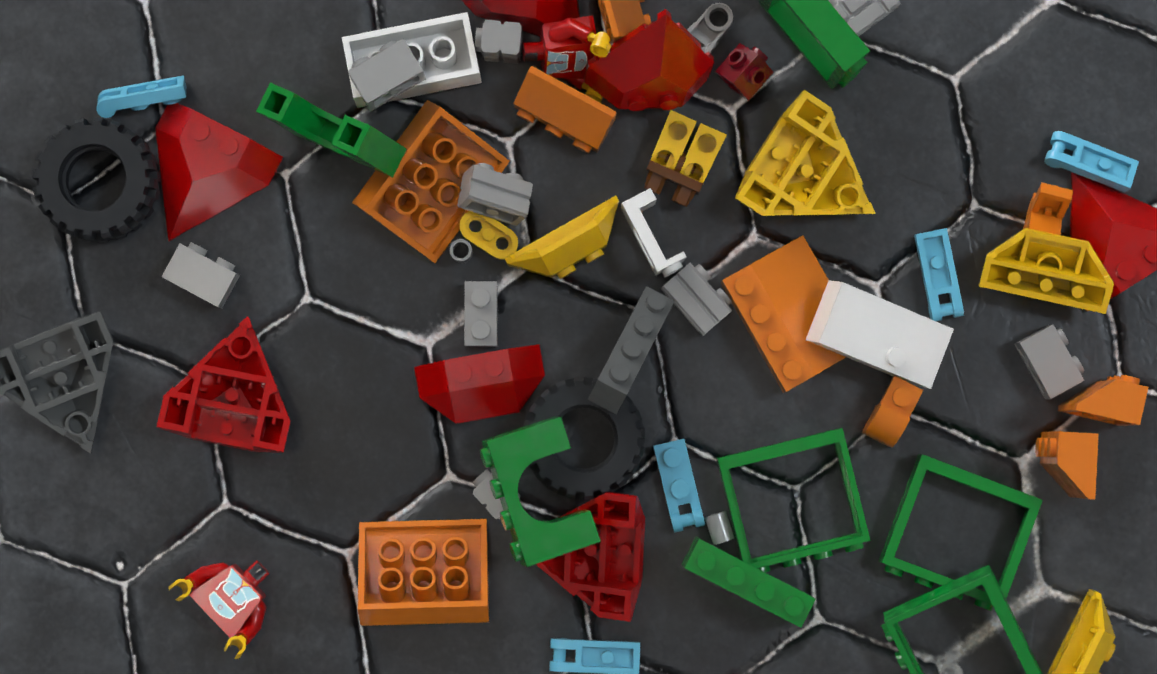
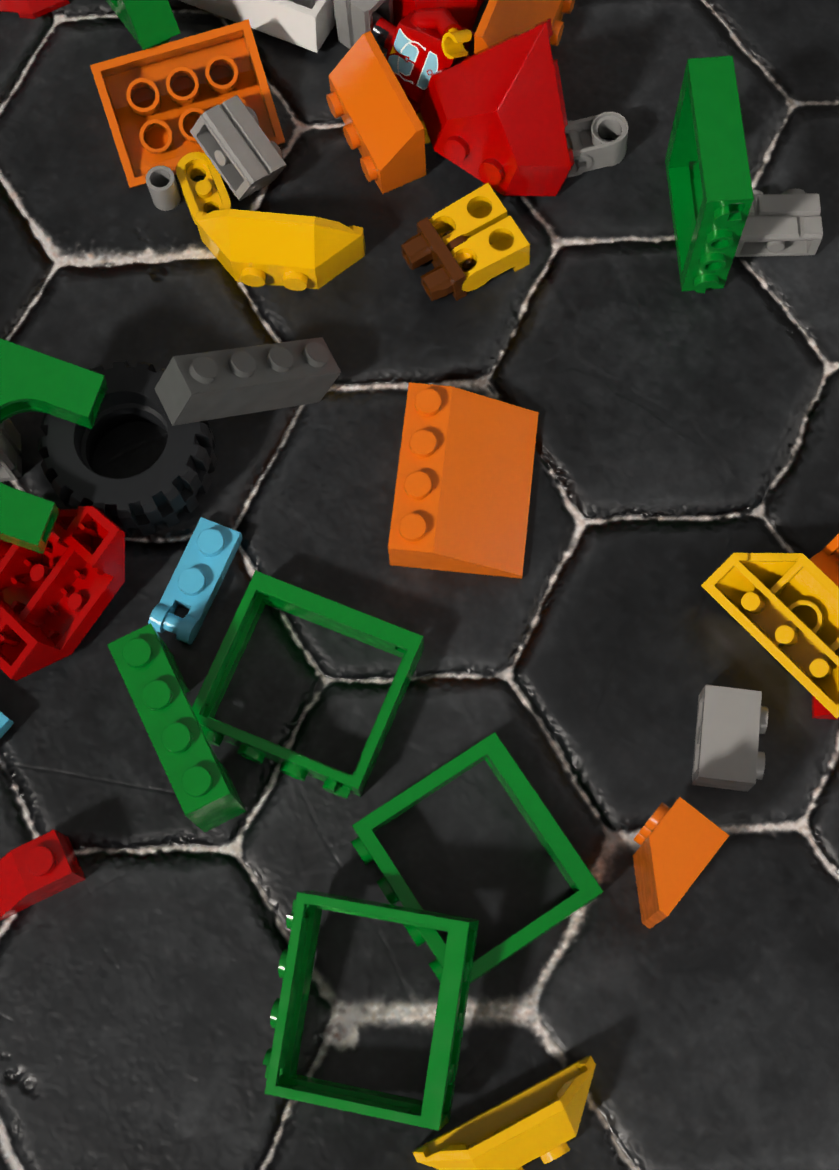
camera: 45 degrees right, 15 degrees down
(481, 314) = (130, 257): light grey brick -> none
(481, 383) = (79, 321): red wedge -> none
(632, 211) = (374, 256): white window -> none
(697, 298) = (369, 396): light grey brick -> none
(719, 527) = (200, 656): light grey hinge -> none
(745, 70) = (599, 201): dark red brick -> none
(804, 167) = (592, 333): yellow wedge -> none
(879, 334) = (544, 560): white brick -> none
(893, 412) = (490, 661): orange brick -> none
(939, 273) = (663, 551): medium azure plate -> none
(1111, 401) = (768, 821): orange slope -> none

